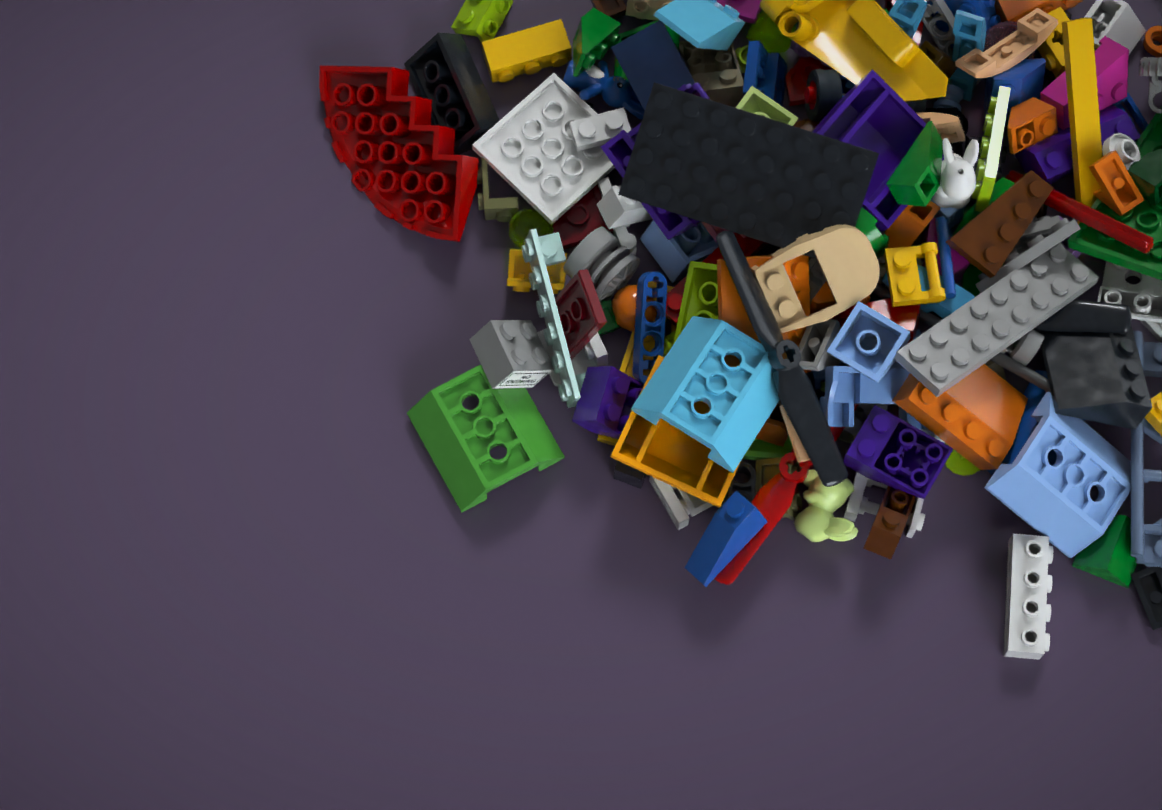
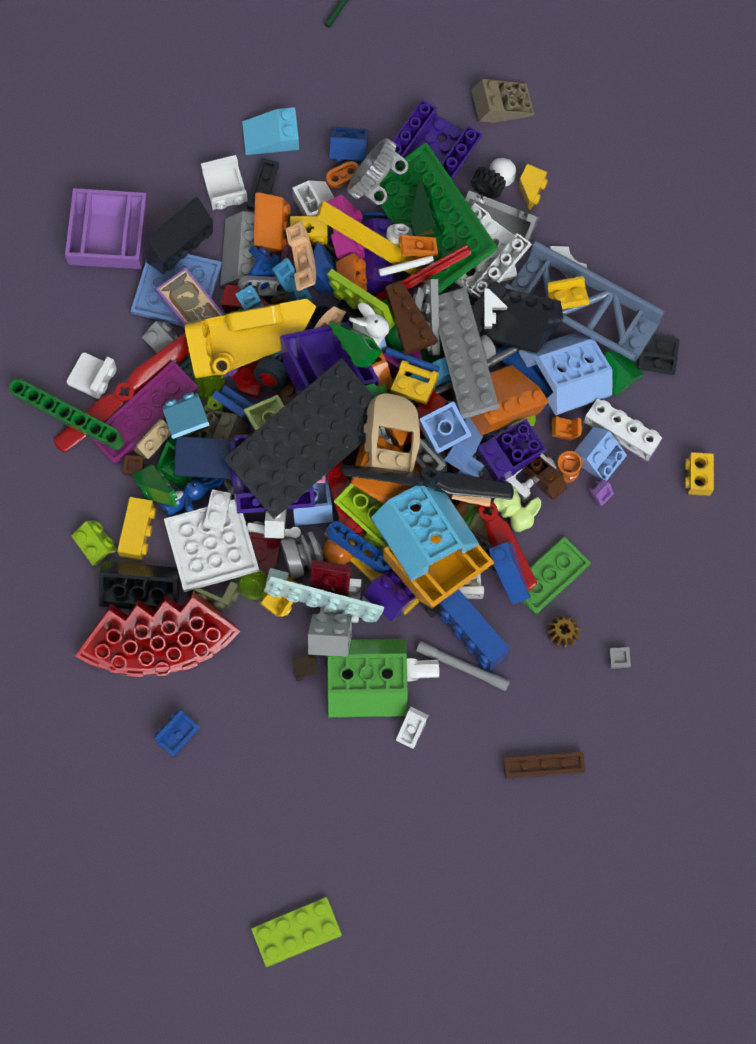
camera: 65 degrees left, 0 degrees up
(106, 518) = (296, 932): none -> lime plate
(286, 237) = (176, 733): none -> blue bracket
(446, 525) = (412, 727): none -> white slope
(455, 347) = (305, 666): none -> dark brown panel
(488, 724) = (544, 765): none -> reddish brown plate
(530, 491) = (422, 669): none -> white piece
(571, 595) = (492, 679): none -> light grey piece
(620, 534) = (473, 630): none -> blue brick
(678, 652) = (571, 632): none -> pearl gold gear
(693, 753) = (619, 658): none -> light grey plate
(763, 606) = (554, 573): none -> bright green tile
(917, 612) = (601, 492): none -> medium lavender tile
(926, 547) = (569, 462): none -> orange wheel
(971, 582) = (600, 453): none -> light blue slope
(982, 518) = (566, 428): none -> orange bracket
(1027, 740) = (704, 474): none -> yellow brick
(1078, 182) = (406, 265): none -> white bar
(1090, 316) = (491, 302): none -> white slope

